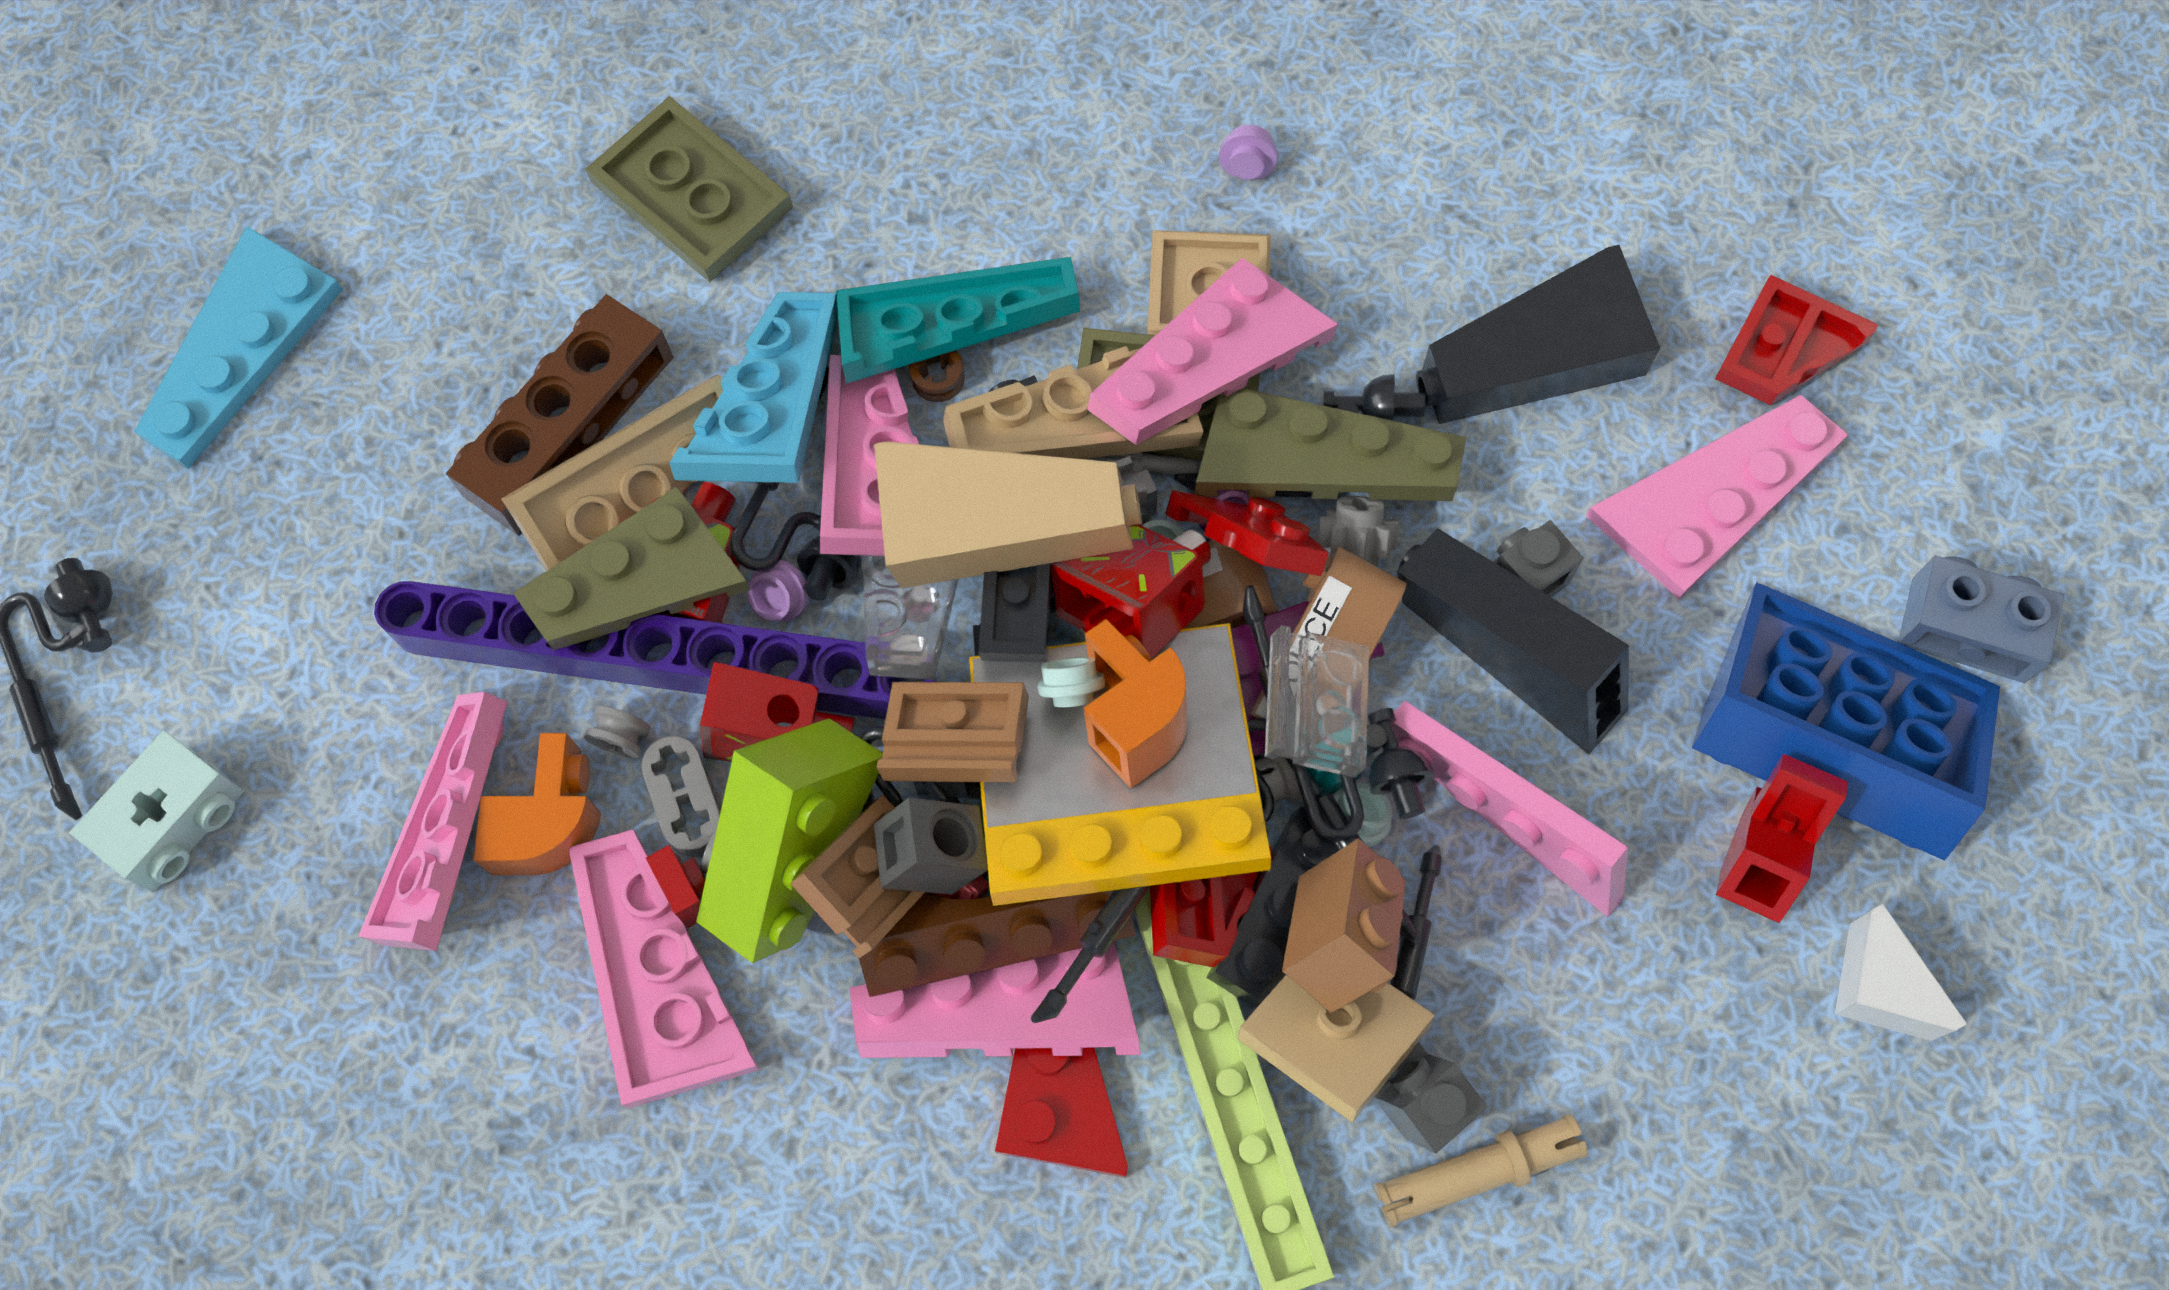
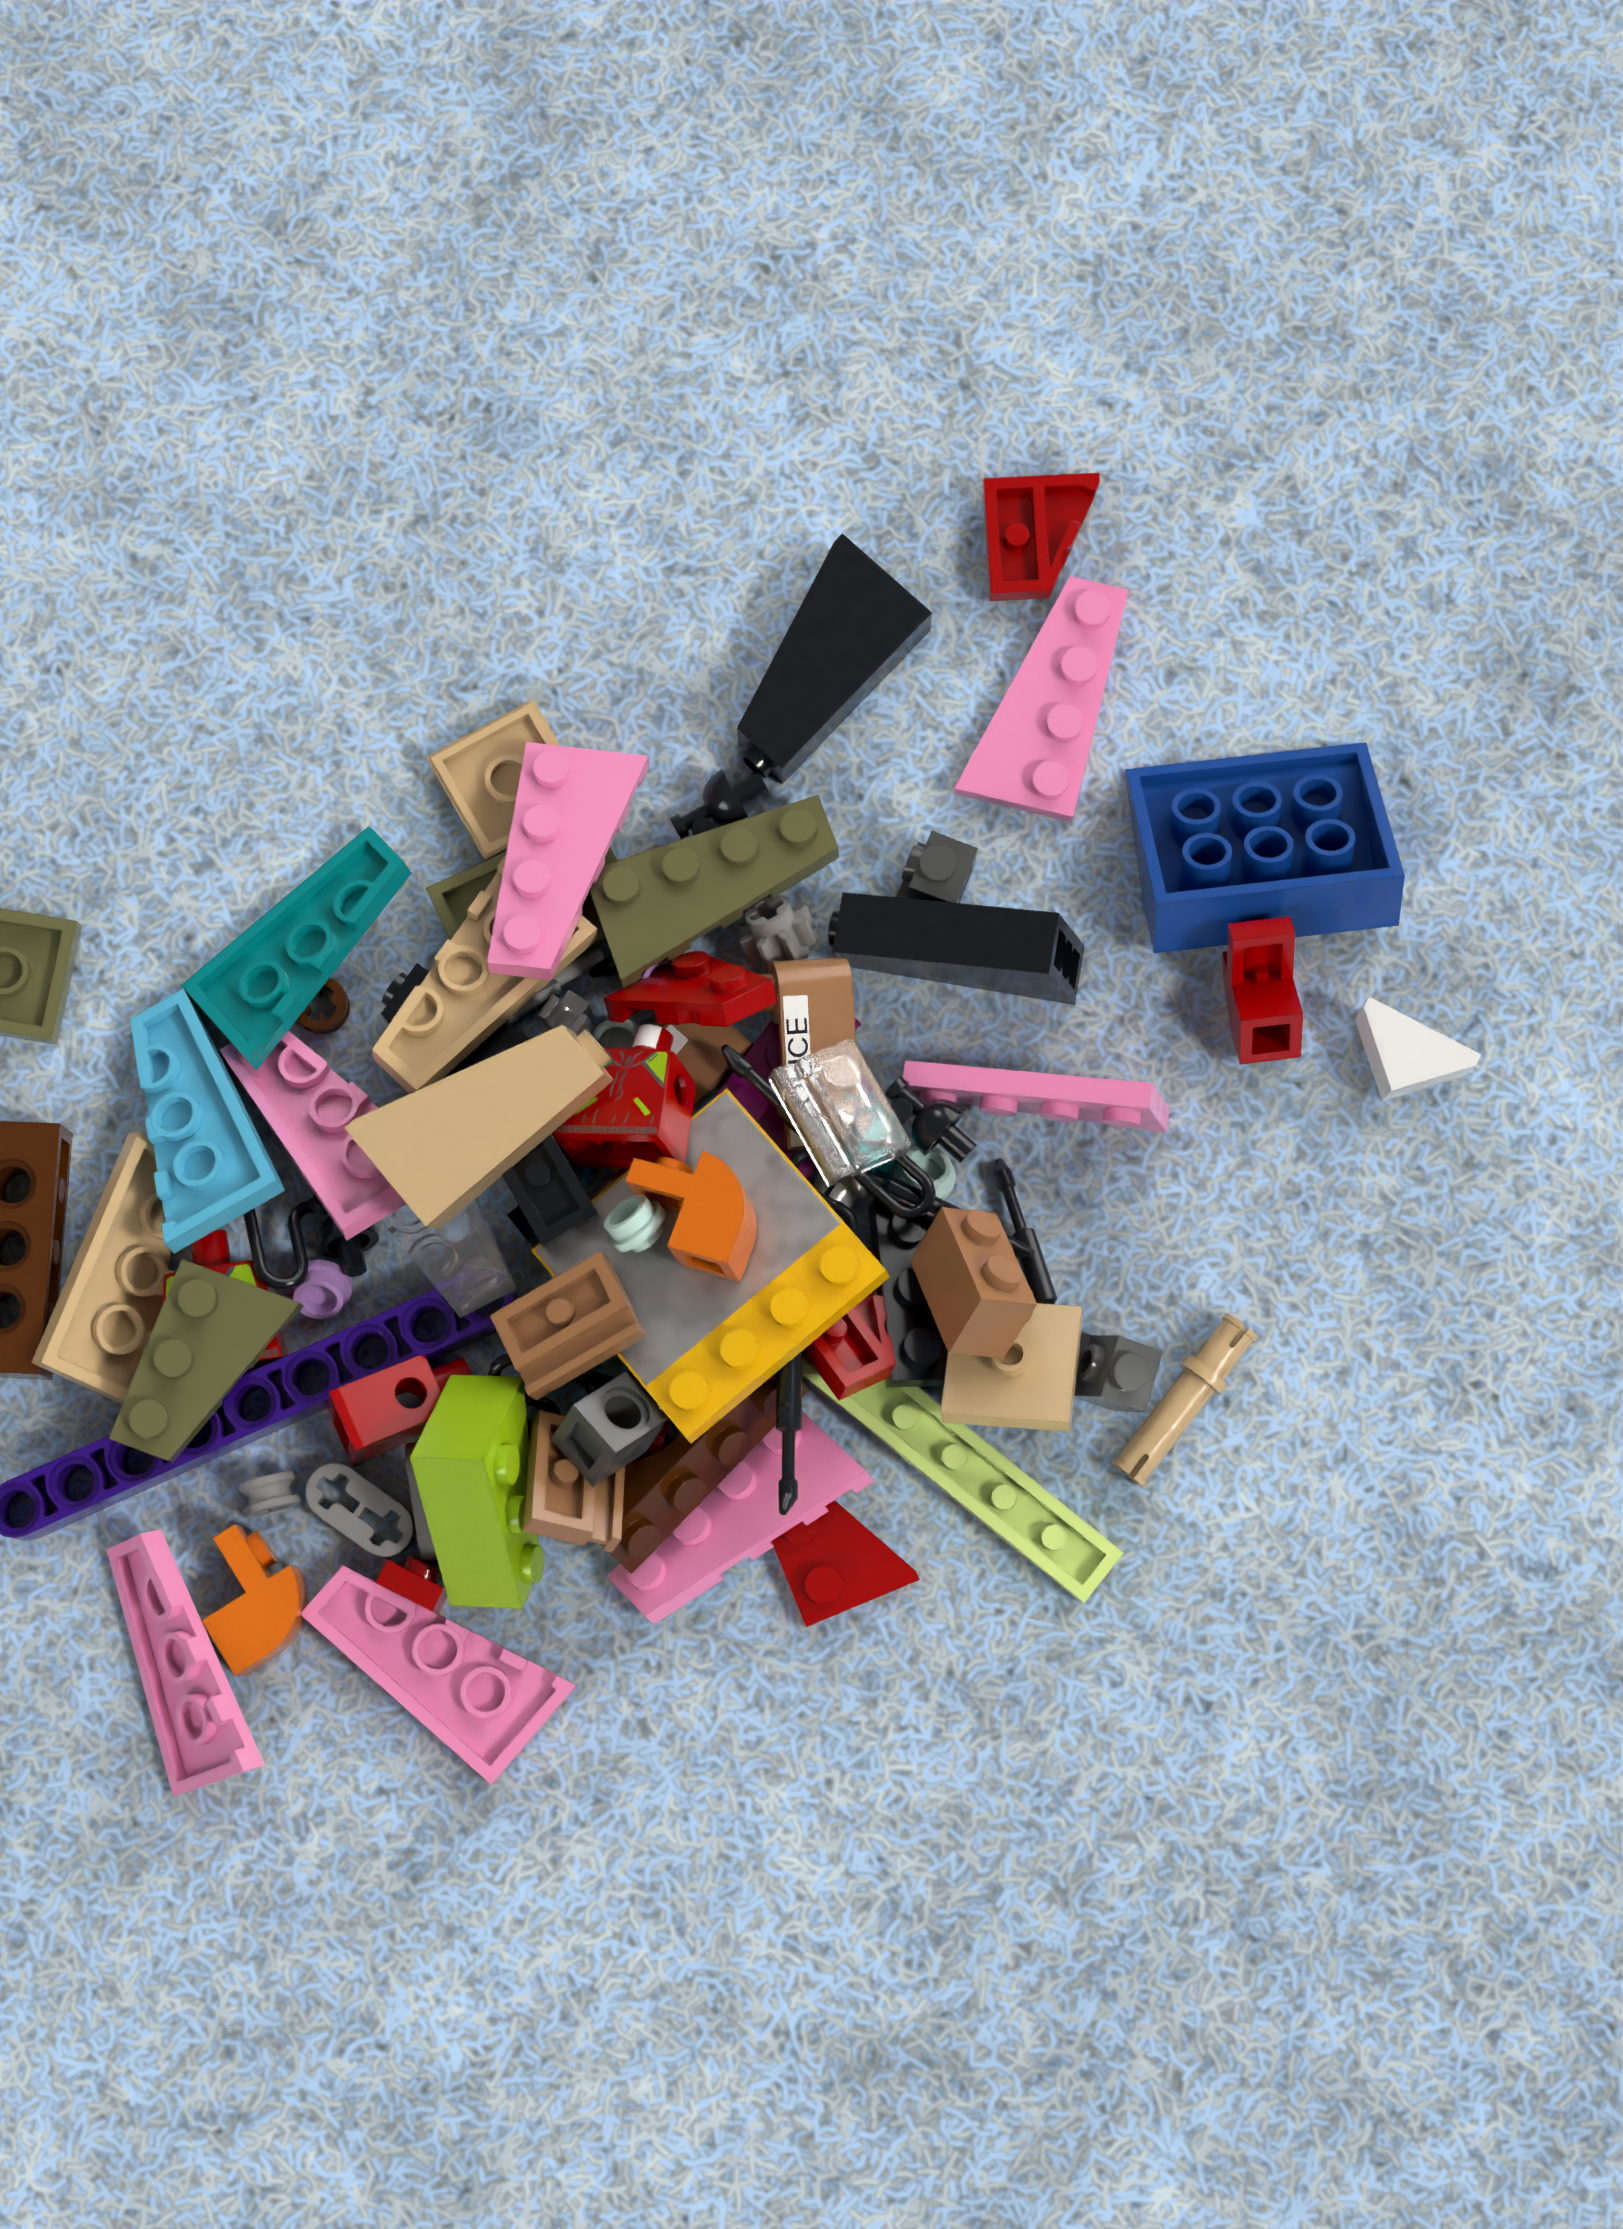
camera: 35 degrees left, 10 degrees up
(1248, 153) = (462, 628): lavender plate -> none
(1981, 618) = (1319, 695): sand blue brick -> none

